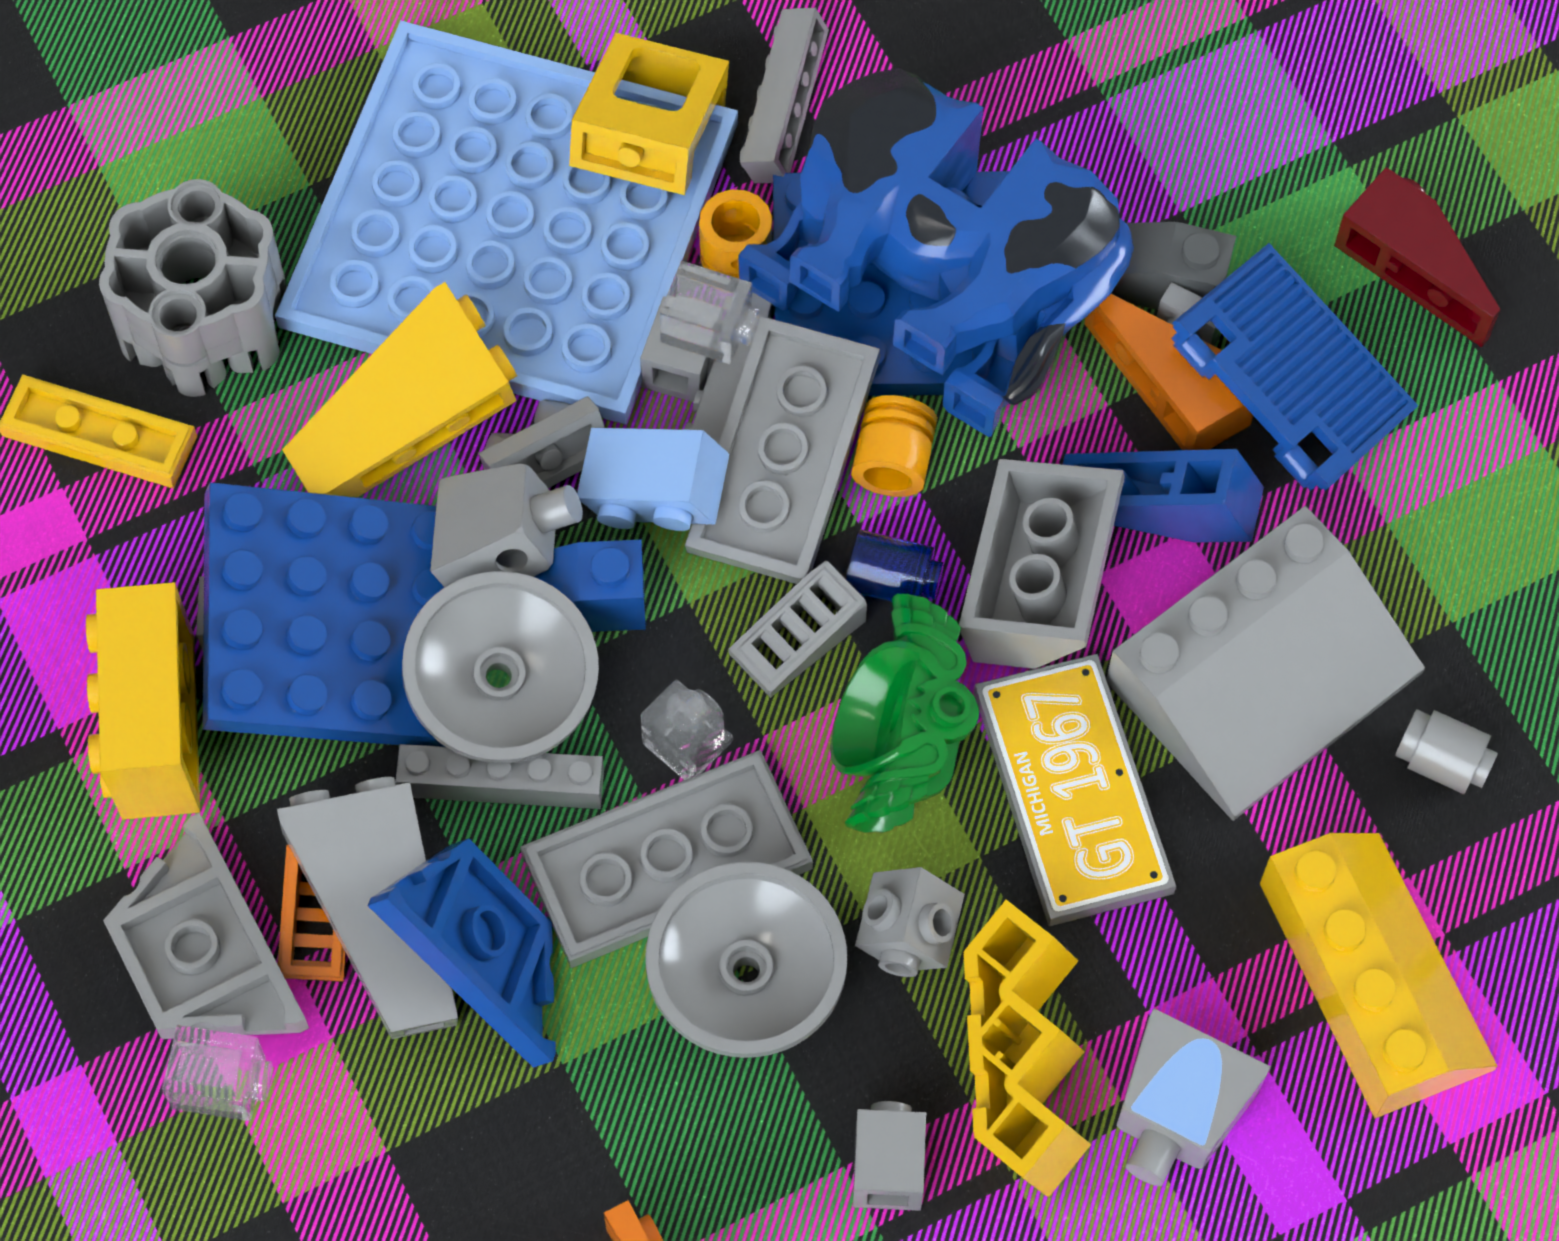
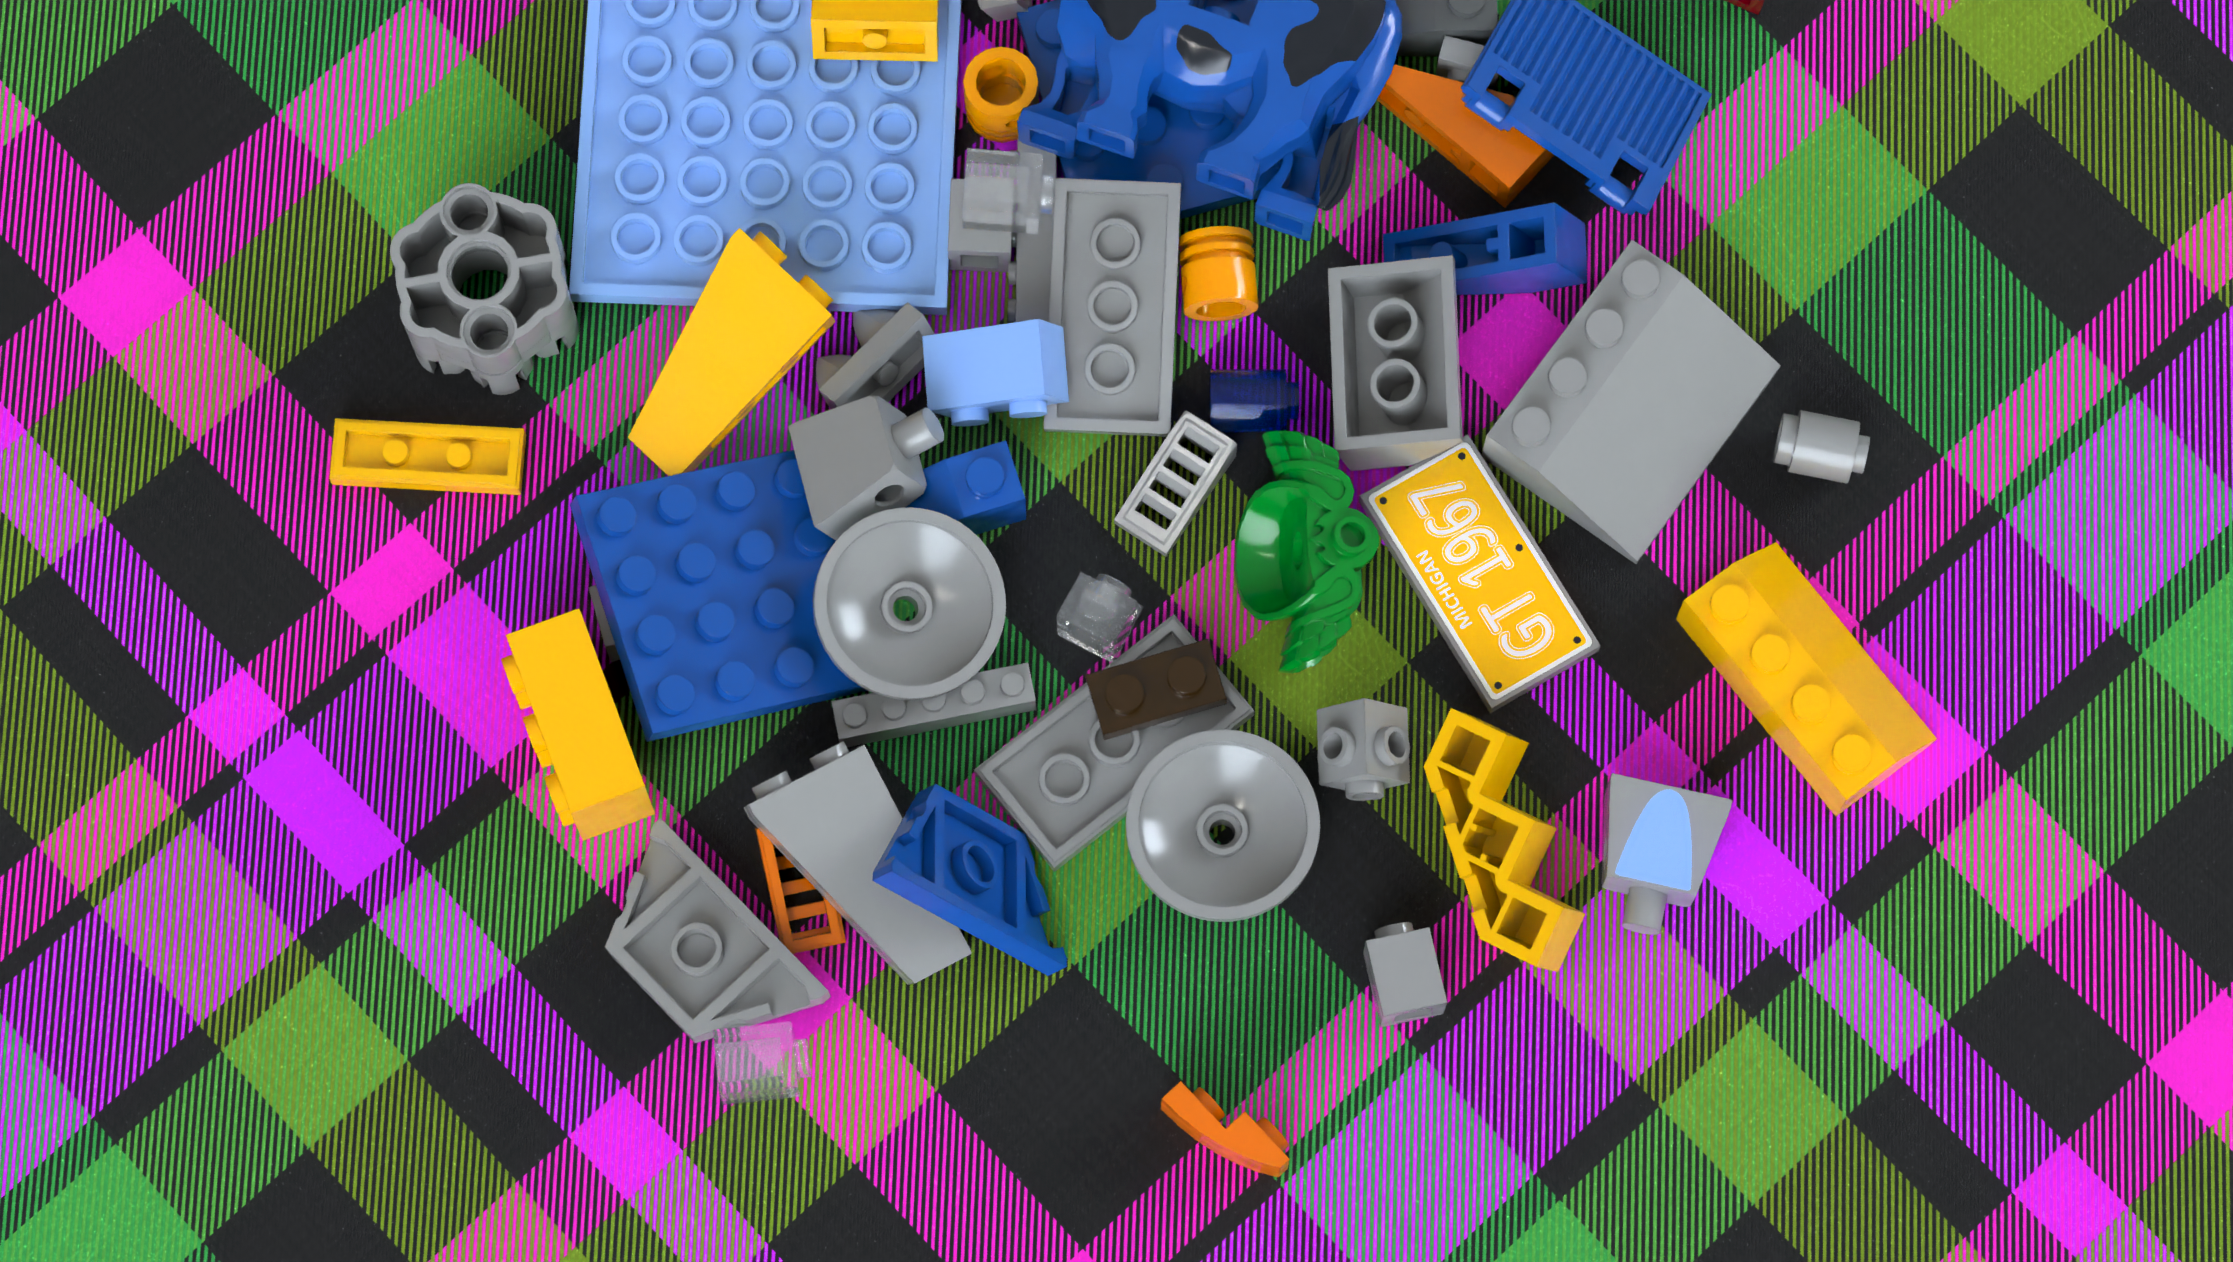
camera: 15 degrees left, 10 degrees up
(720, 814) = (1156, 689): none -> dark brown plate

